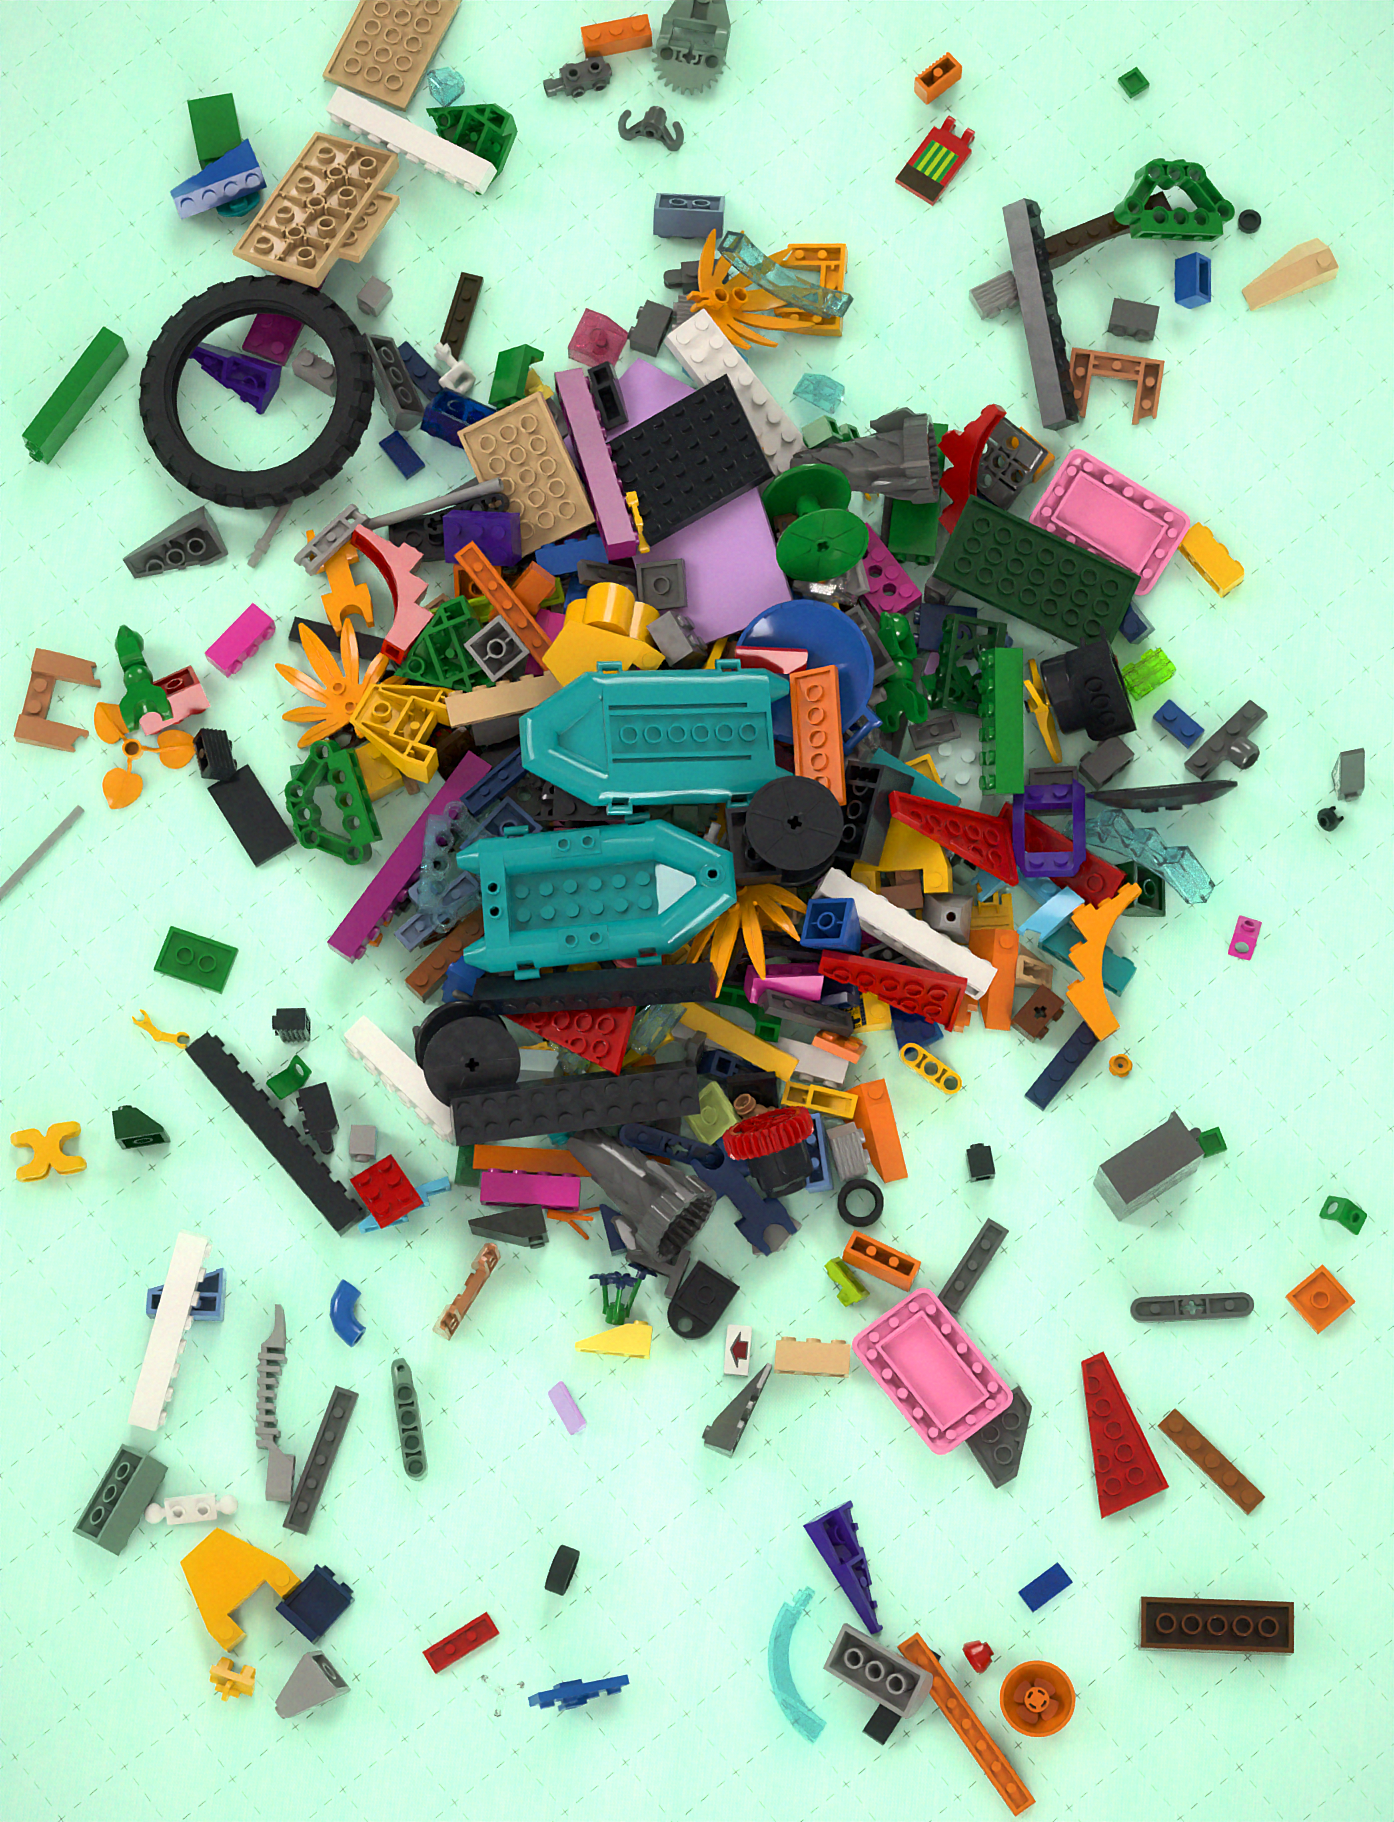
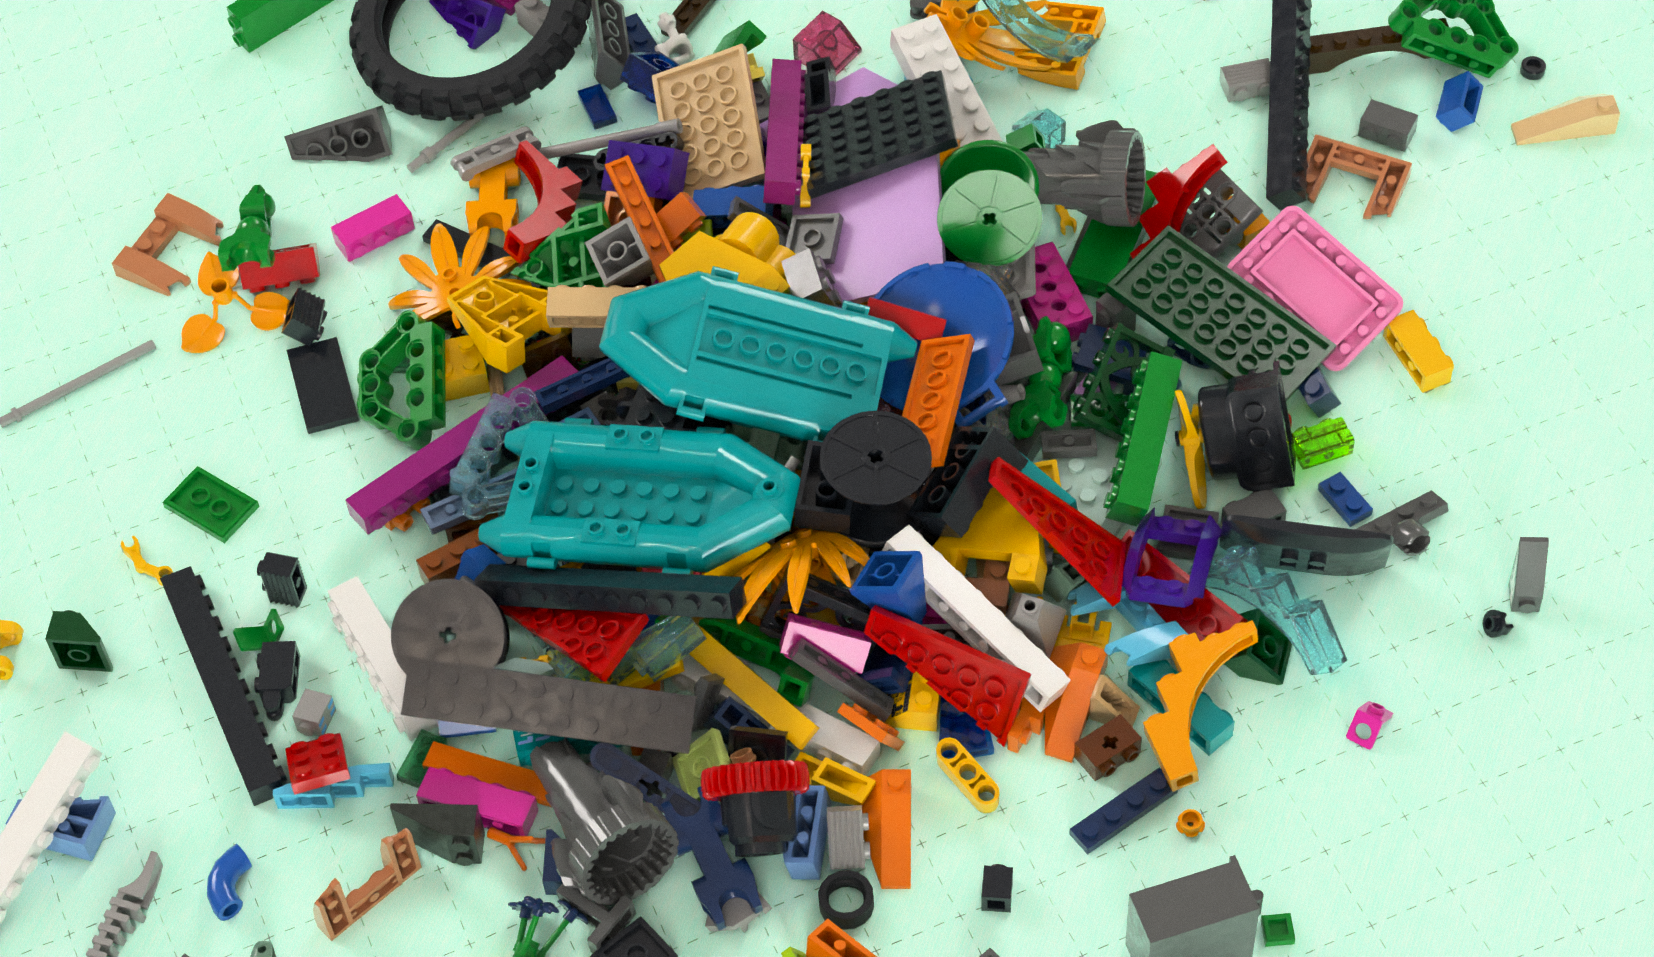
camera: 15 degrees right, 20 degrees down
(650, 328) = (875, 49): dark grey brick -> none

